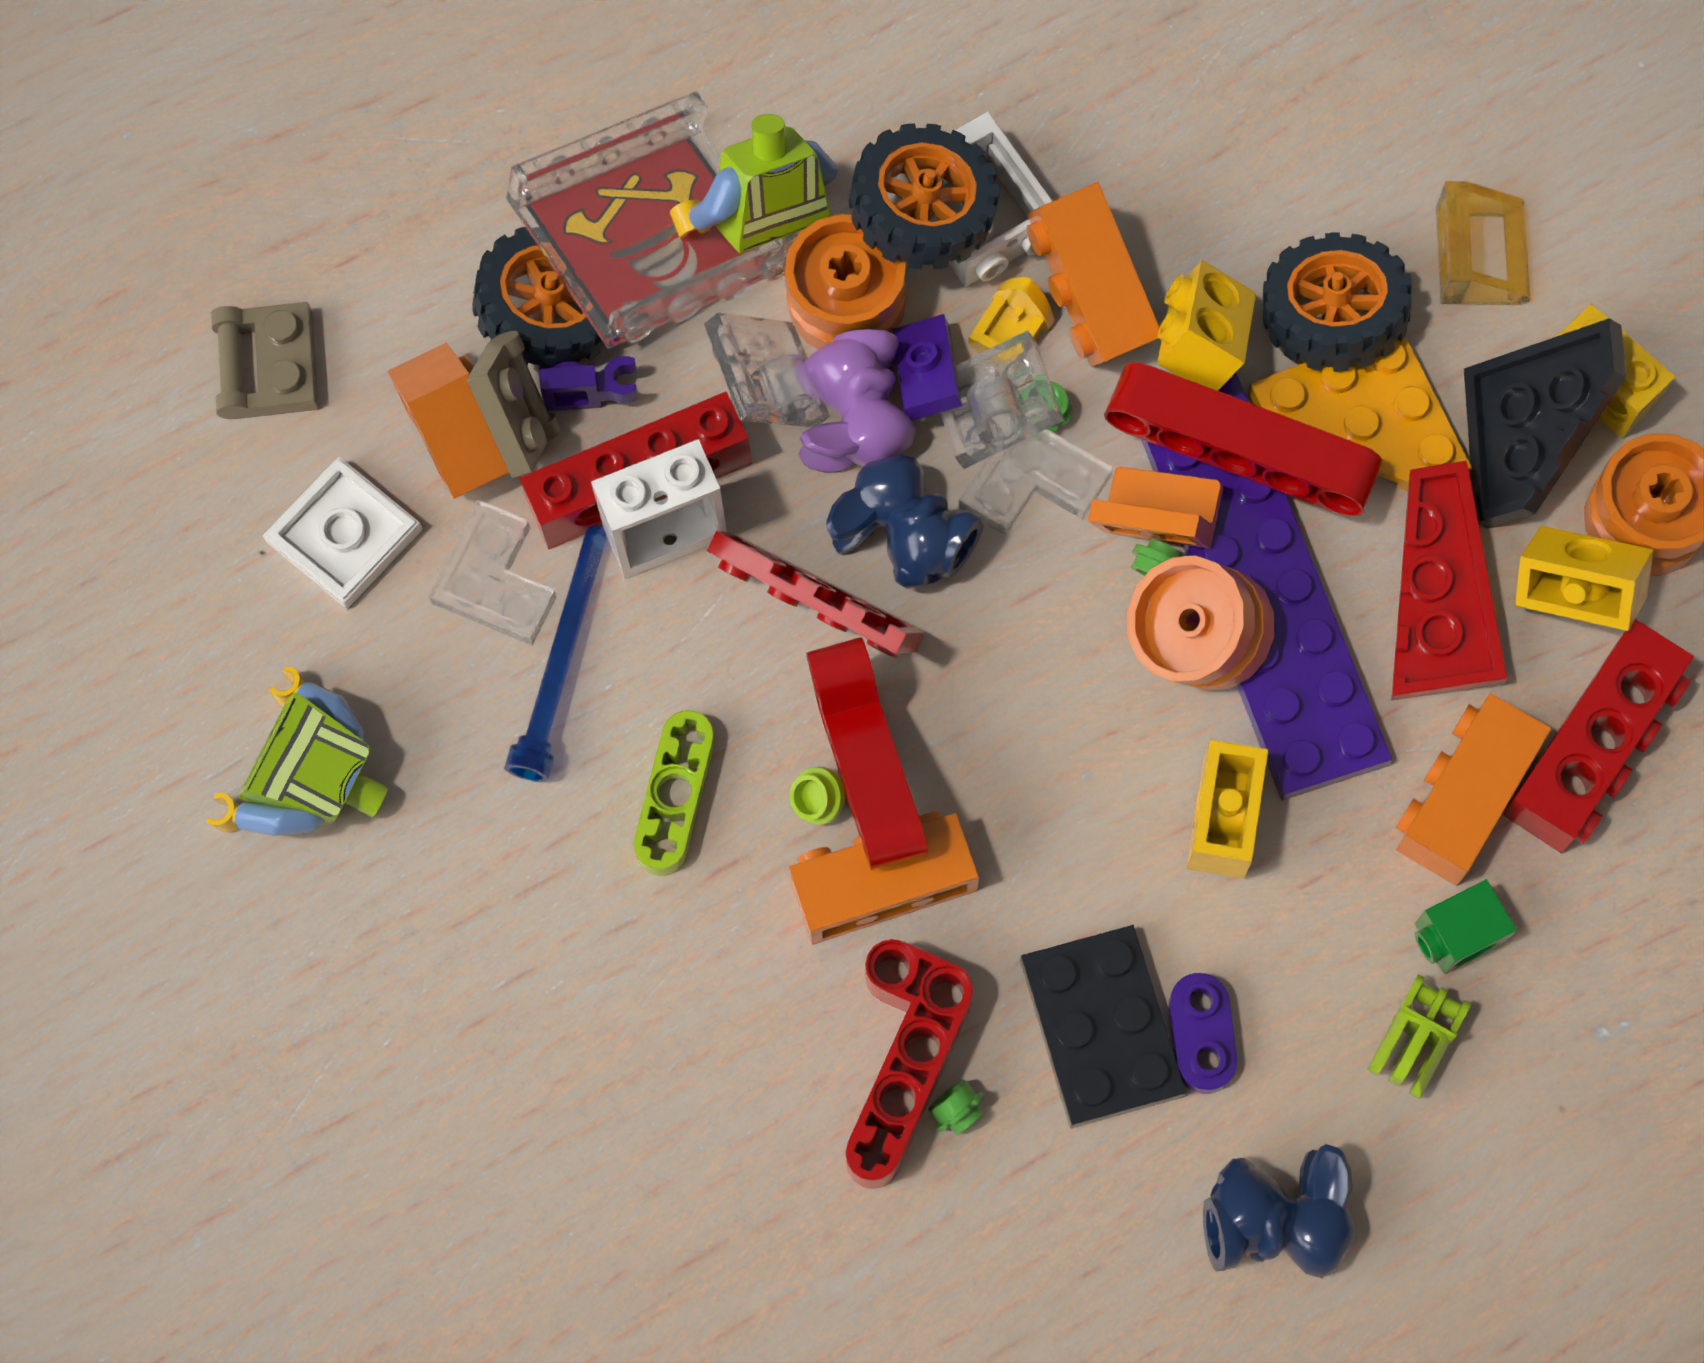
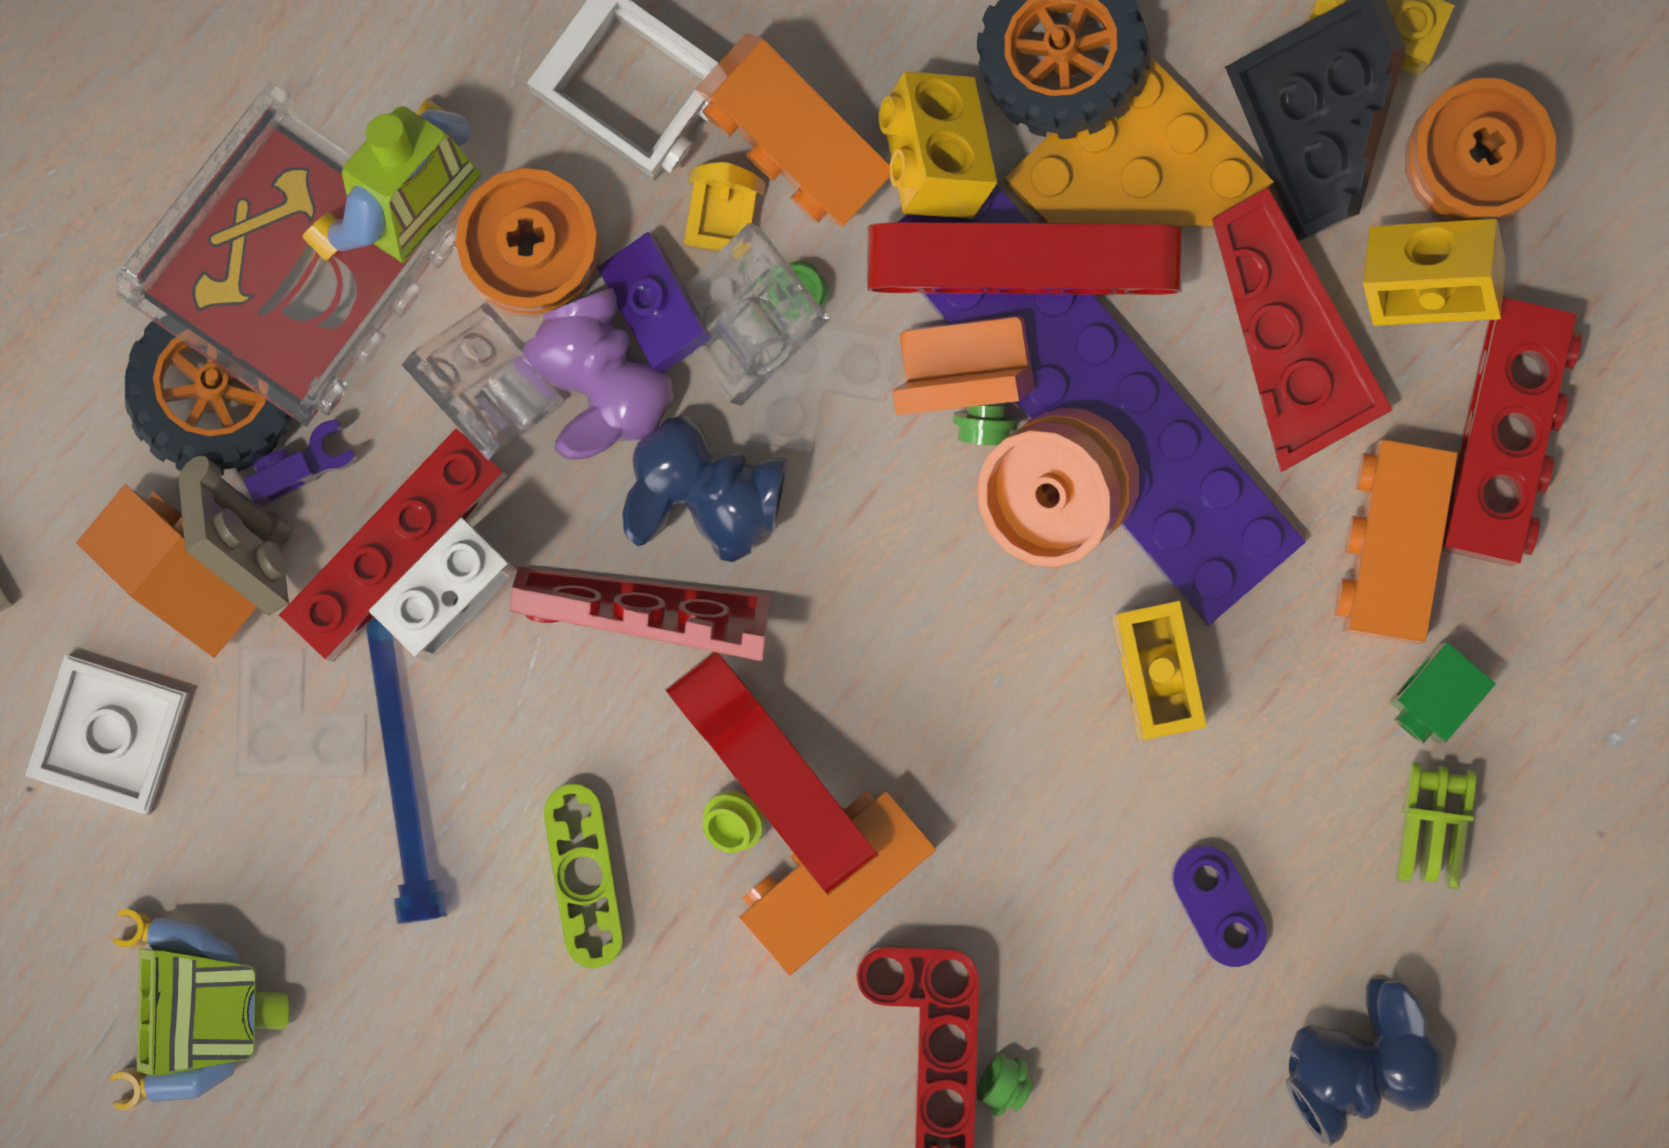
camera: 30 degrees left, 15 degrees up
(926, 158) = (586, 63): black wheel -> none
(1102, 1026) = (1116, 940): black plate -> none

